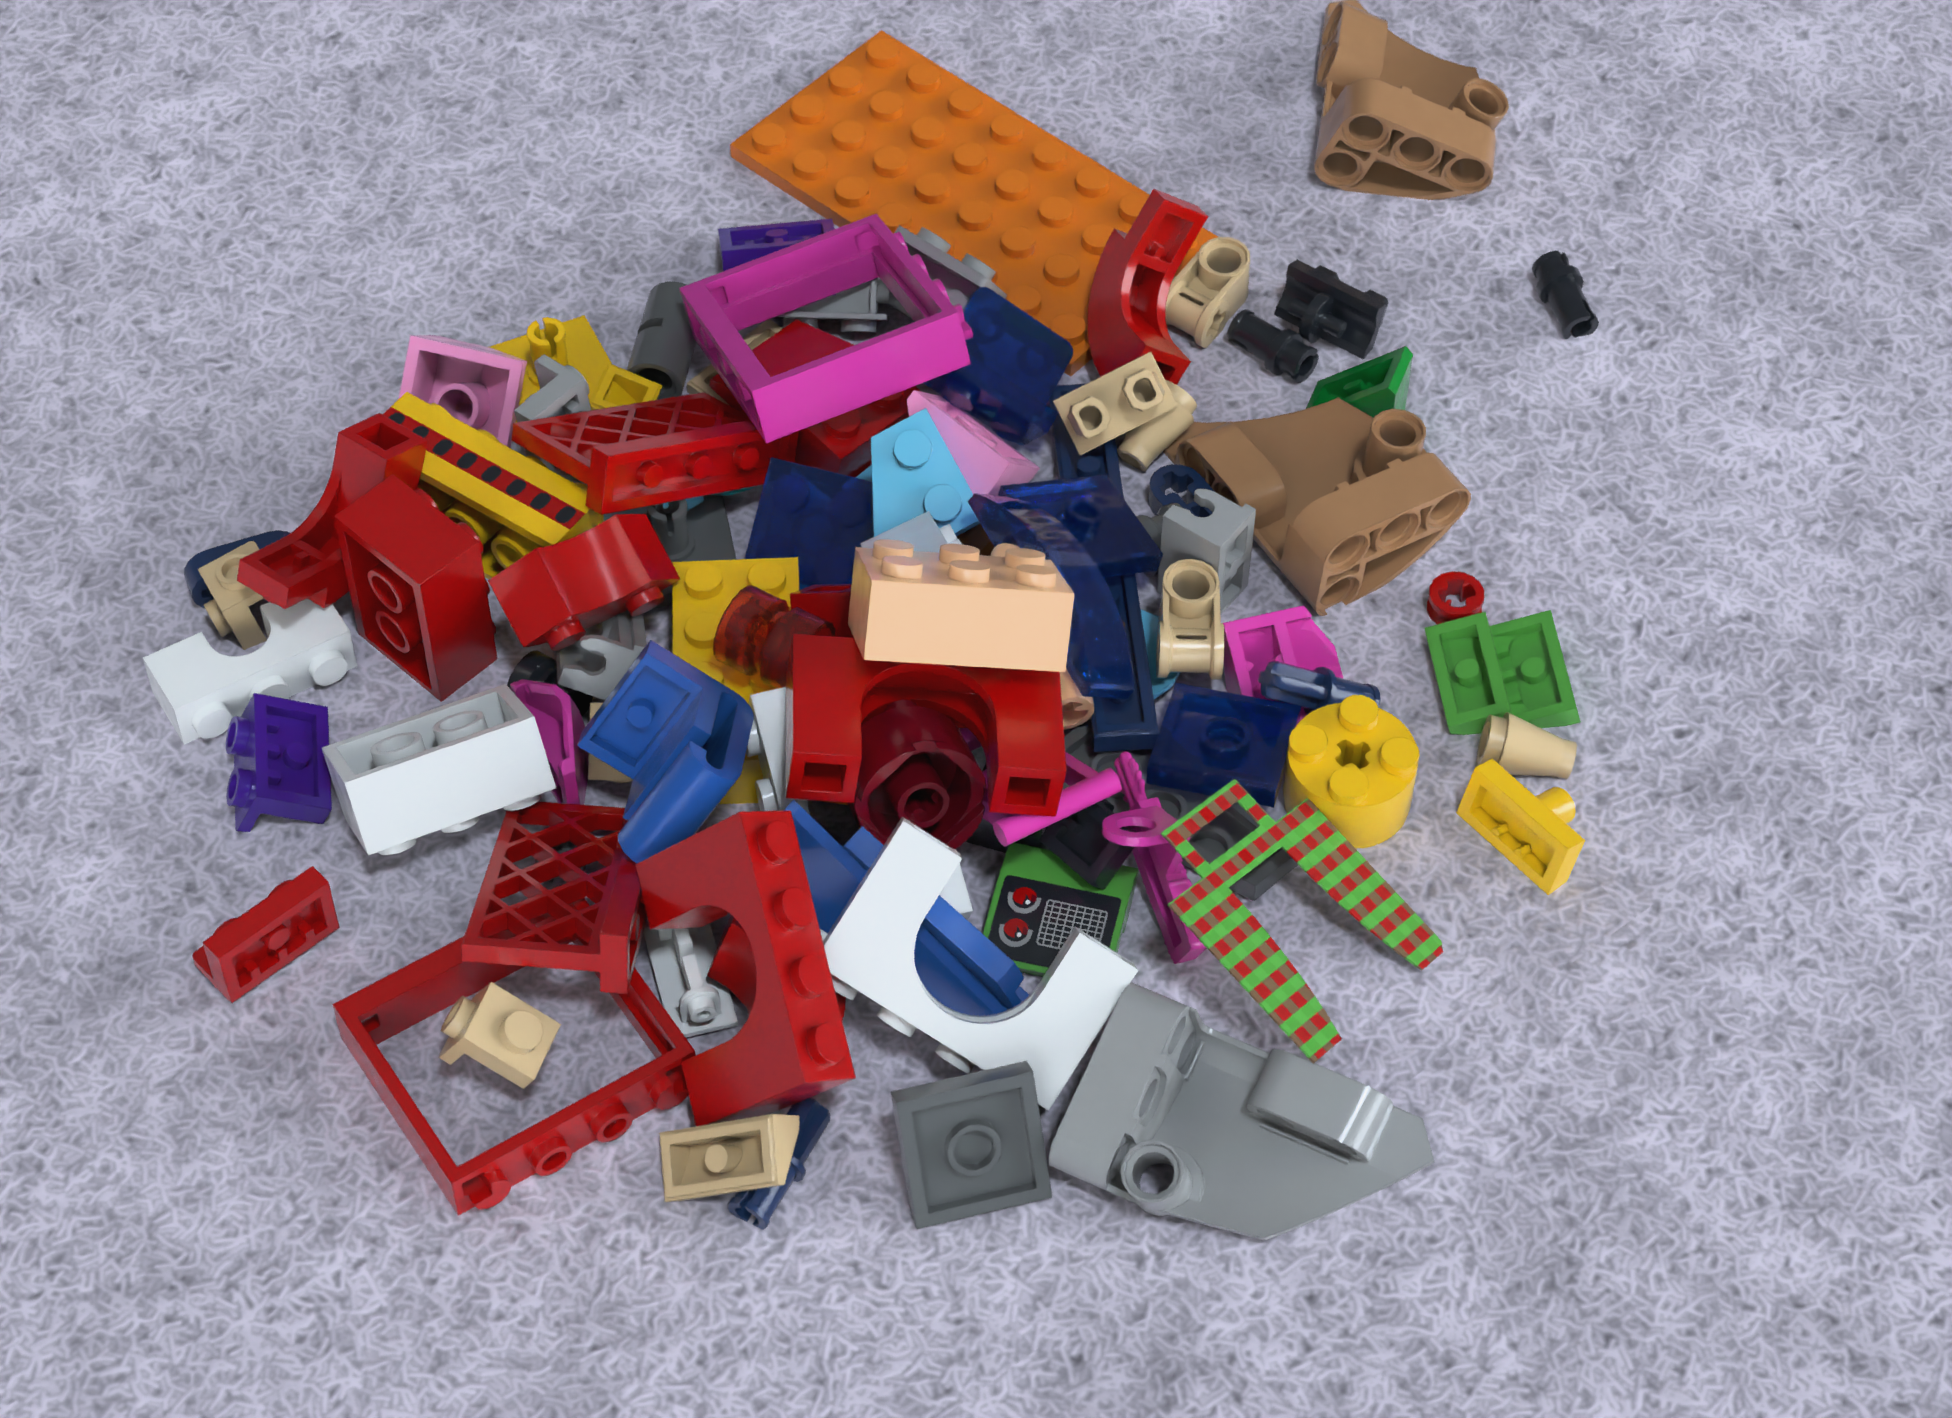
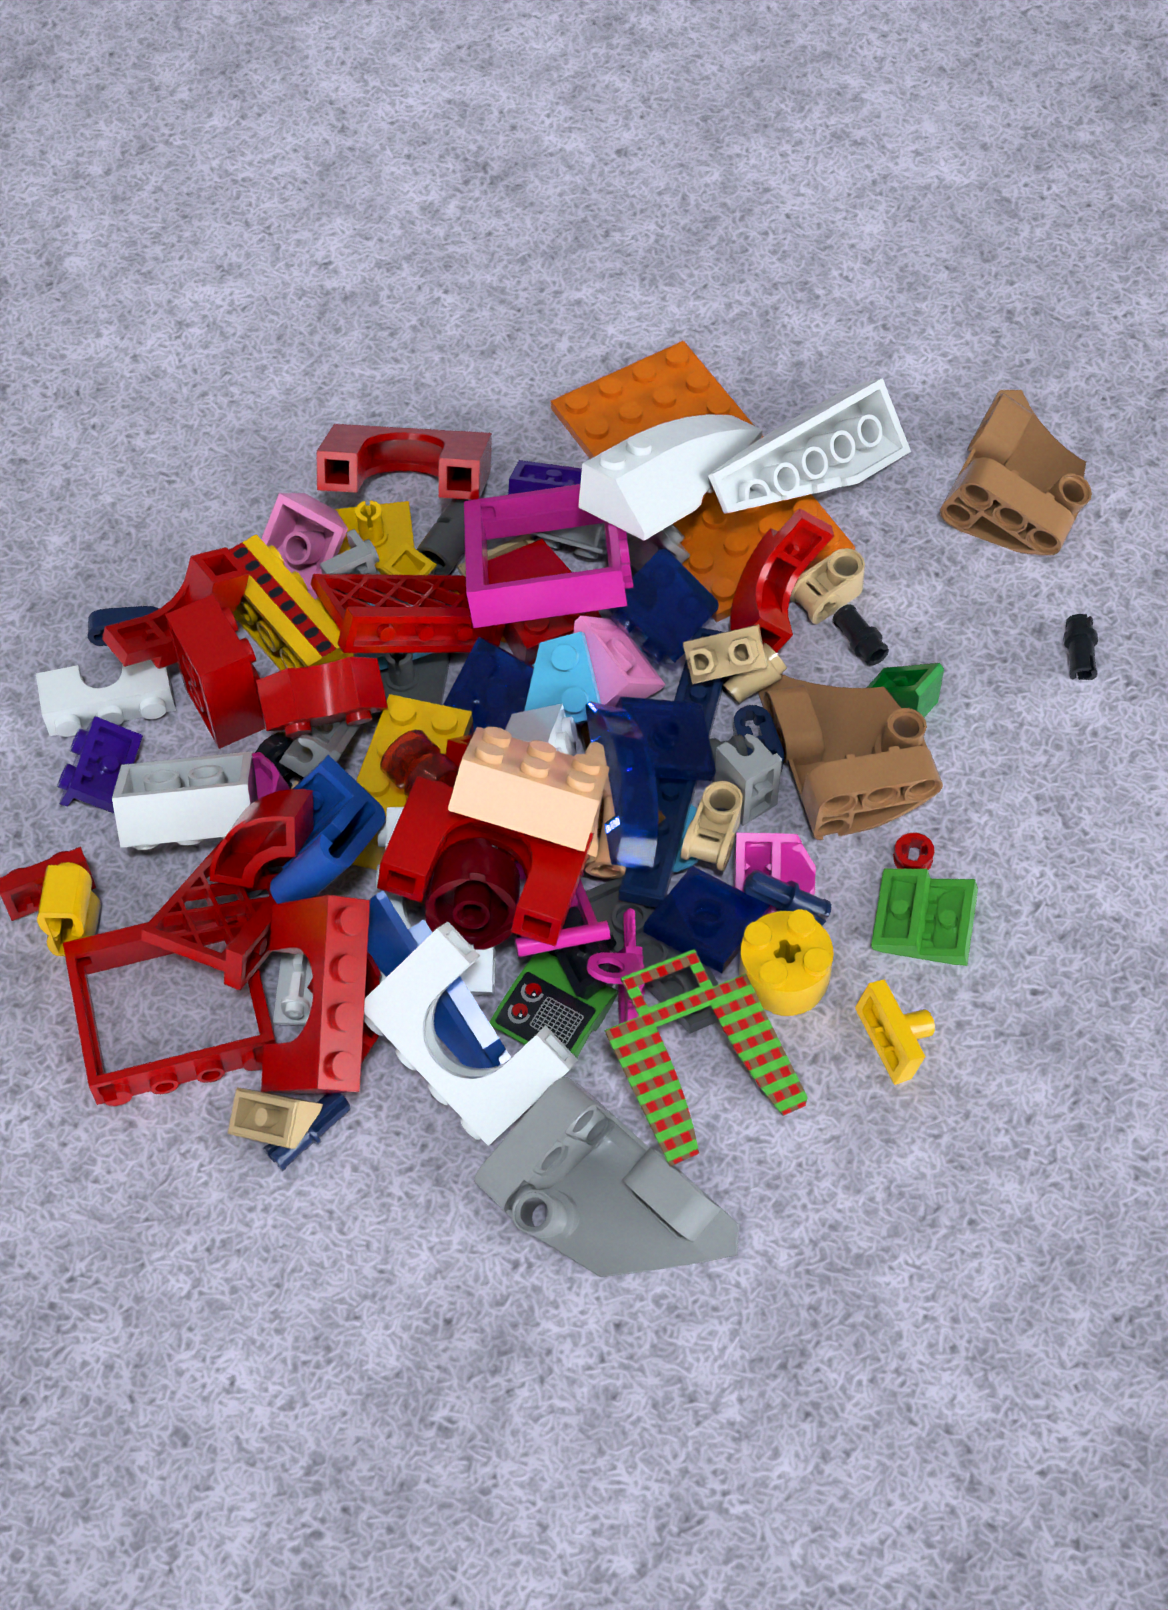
camera: 20 degrees right, 5 degrees up
(231, 598) = (100, 653): tan bracket -> none
(321, 952) = (67, 906): none -> yellow brick
(499, 1034) = (153, 994): tan bracket -> none
(581, 776) = (264, 831): none -> red brick
(631, 241) = (359, 451): none -> red arch
(945, 188) = (661, 471): none -> white wedge
(971, 1144) = (426, 1155): dark grey tile -> none
(1128, 122) = (816, 451): none -> white wedge
(1331, 309) = (910, 619): black hips -> none
(1525, 748) = (916, 975): tan cone -> none

